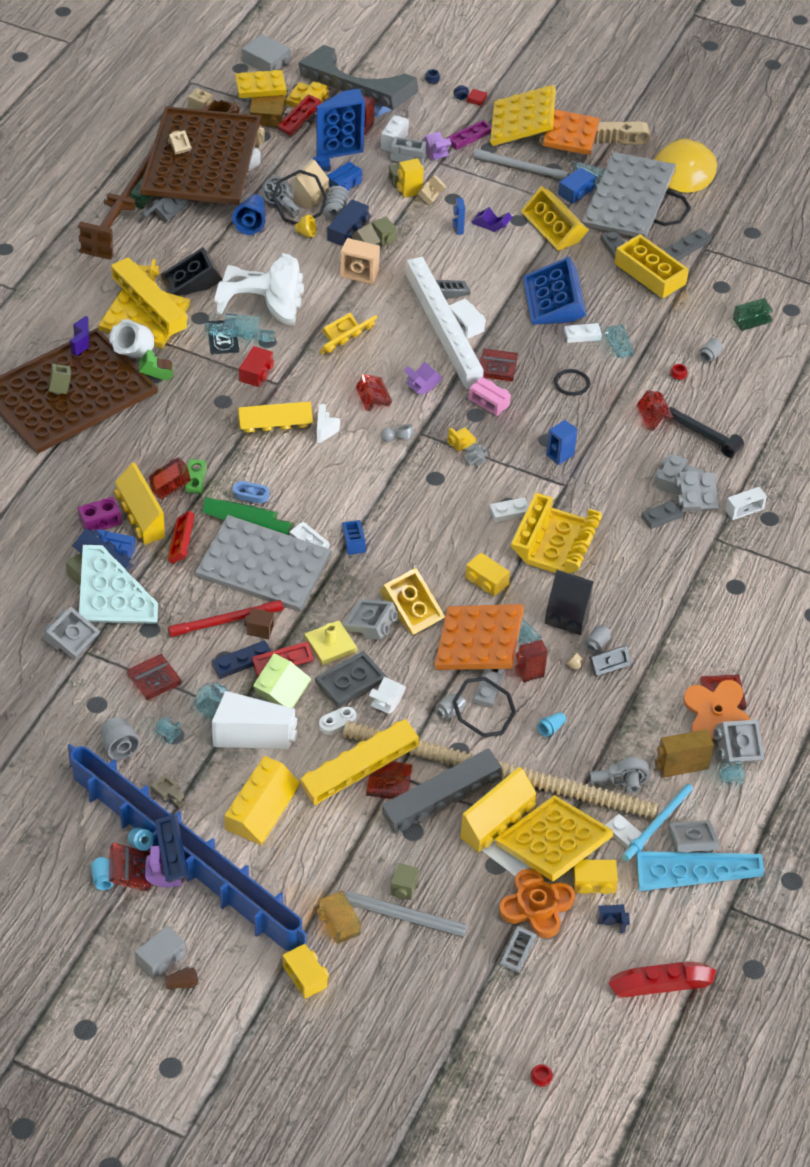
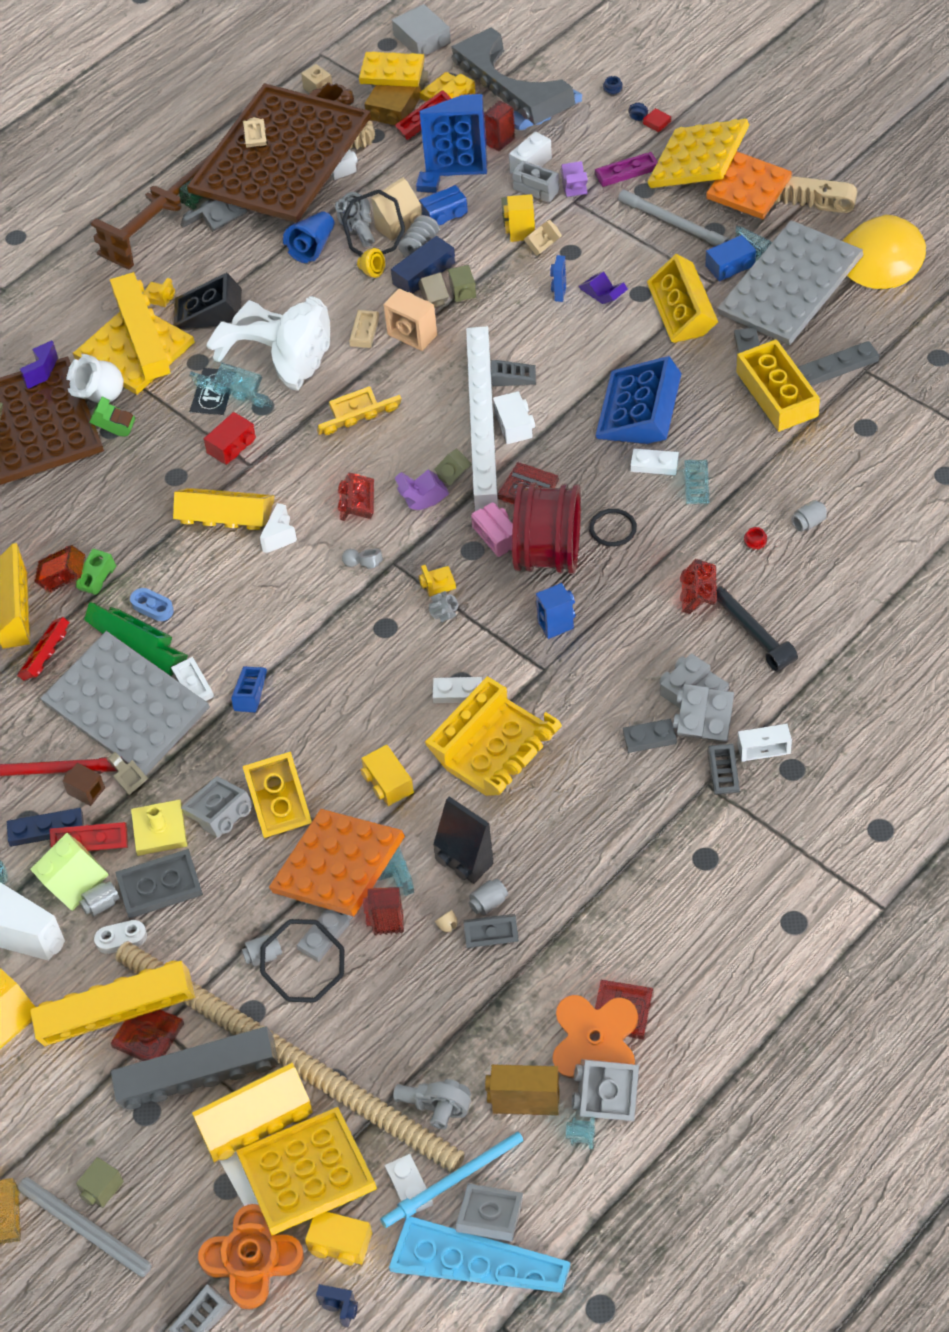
camera: 25 degrees right, 5 degrees up
(292, 610) = (128, 775): none -> dark tan plate
(310, 697) = (99, 898): none -> light grey brick
(322, 274) = (364, 329): none -> tan plate
(388, 695) = (191, 918): white brick -> none
(439, 358) = (452, 467): none -> olive brick
(536, 385) = (546, 527): none -> dark red wheel
(549, 725) = (378, 1003): medium azure cone -> none
(683, 216) = (840, 327): black piece -> none
(723, 514) = (721, 751): none -> dark grey slope
(752, 314) = (887, 474): clear green hinge -> none

